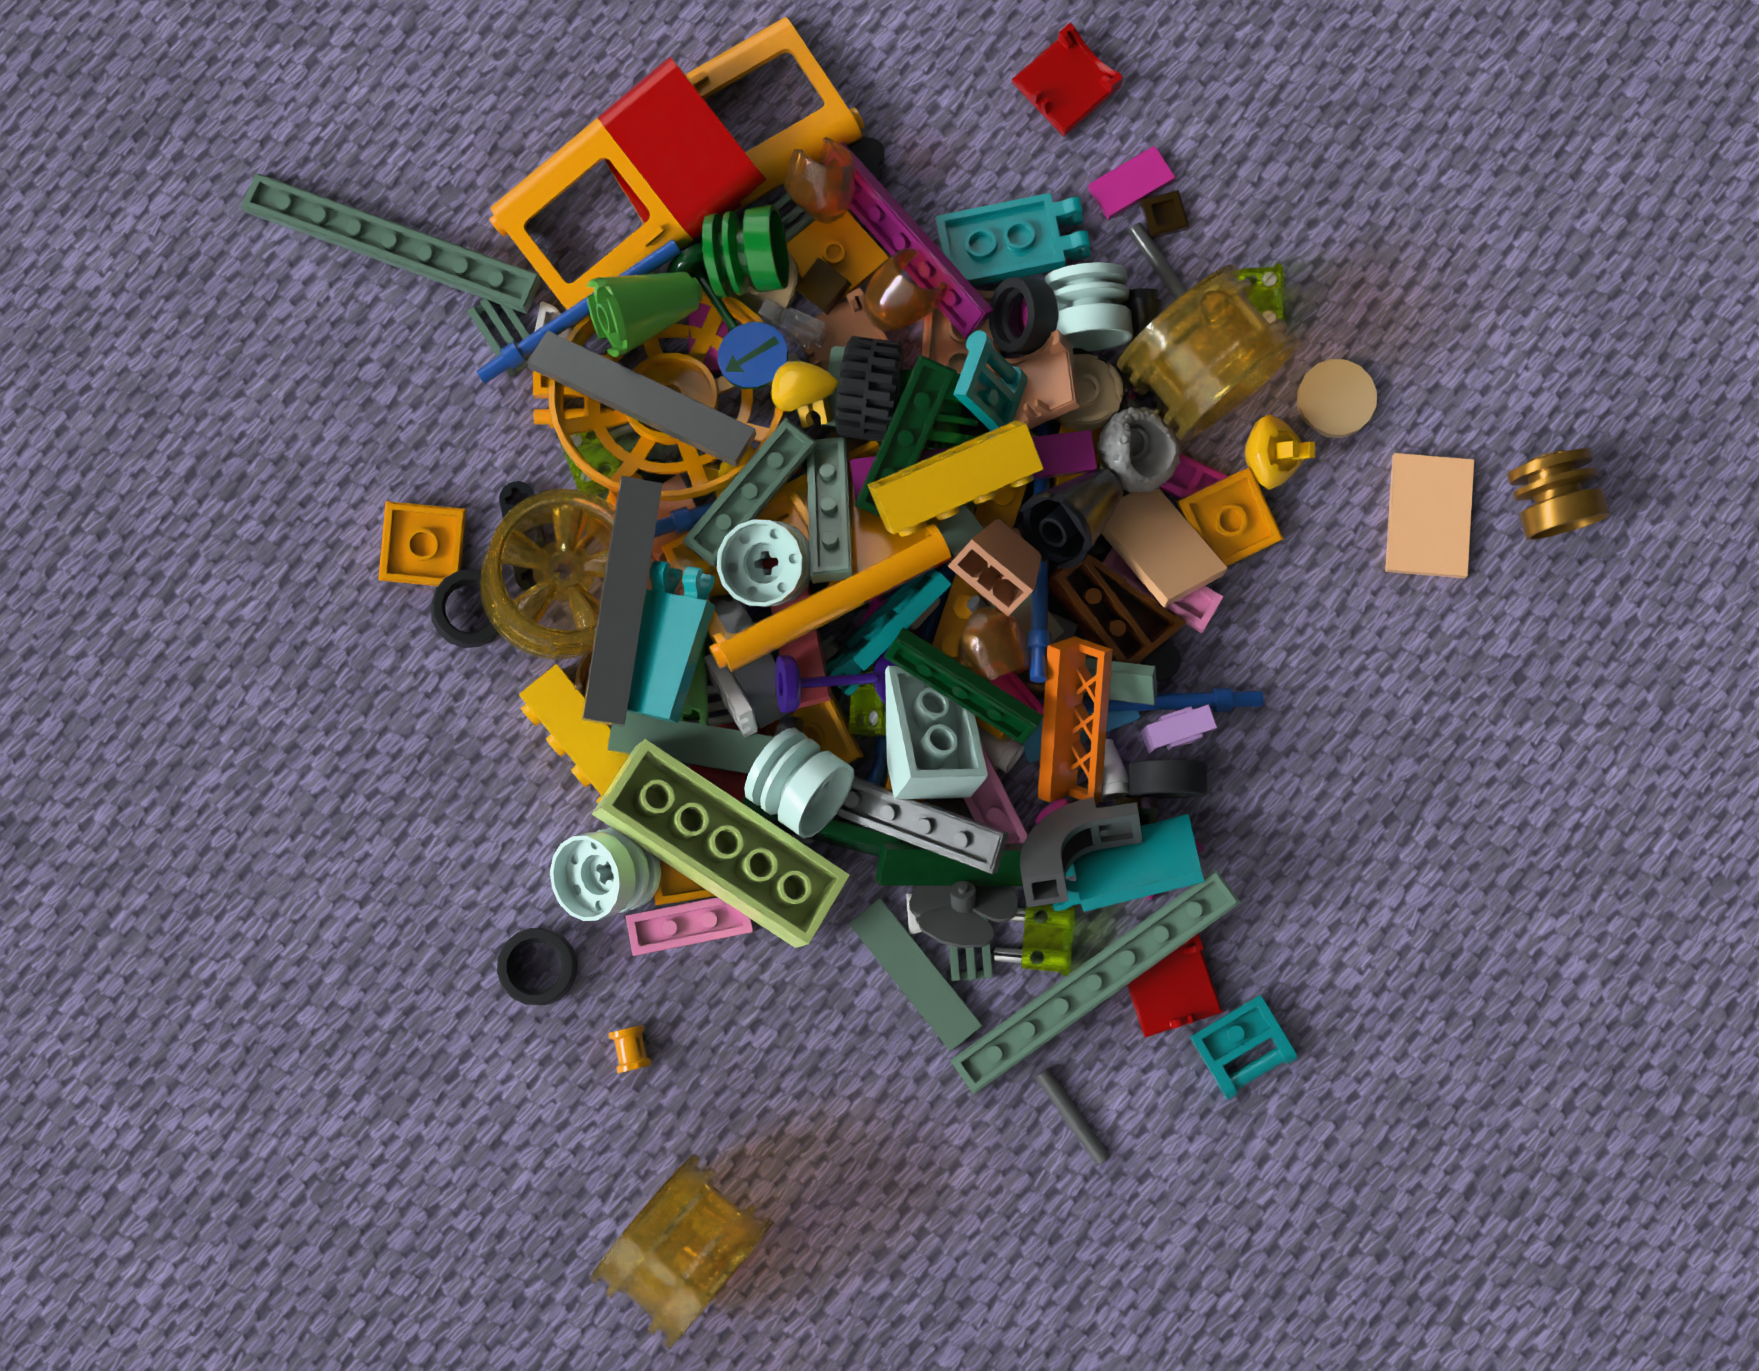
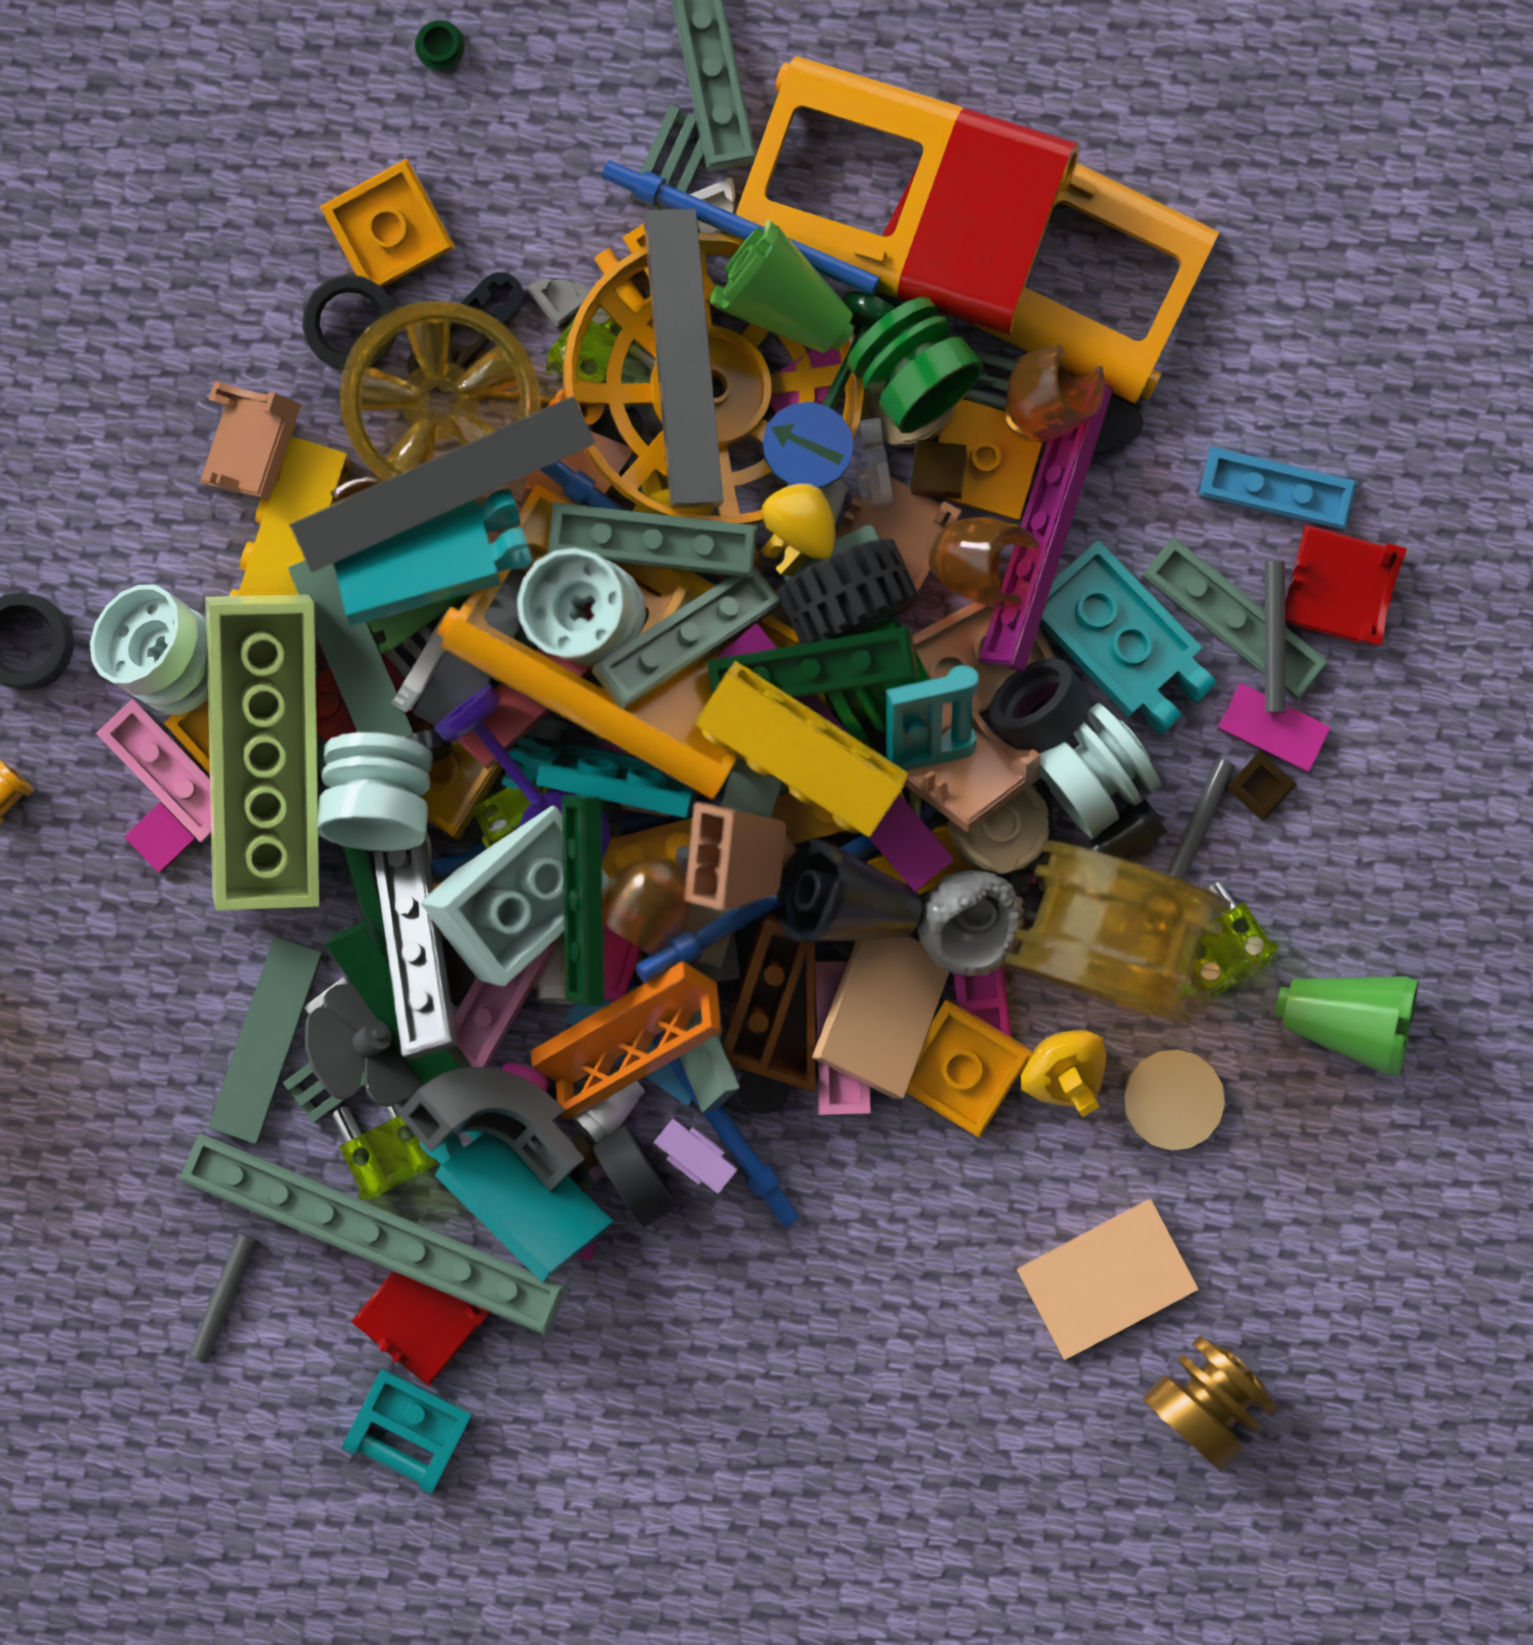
camera: 50 degrees right, 5 degrees up
(325, 435) = (439, 45): none -> dark green plate
(503, 724) = (249, 440): none -> nougat piece
(545, 463) = (558, 298): none -> light grey tile
(731, 959) = (160, 837): none -> dark pink tile
(976, 84) = (1277, 488): none -> dark azure tile
(1044, 163) = (1229, 614): none -> sand green tile
(1073, 142) = (1275, 637): none -> dark grey bar
(1357, 244) = (1353, 1016): none -> bright green cone

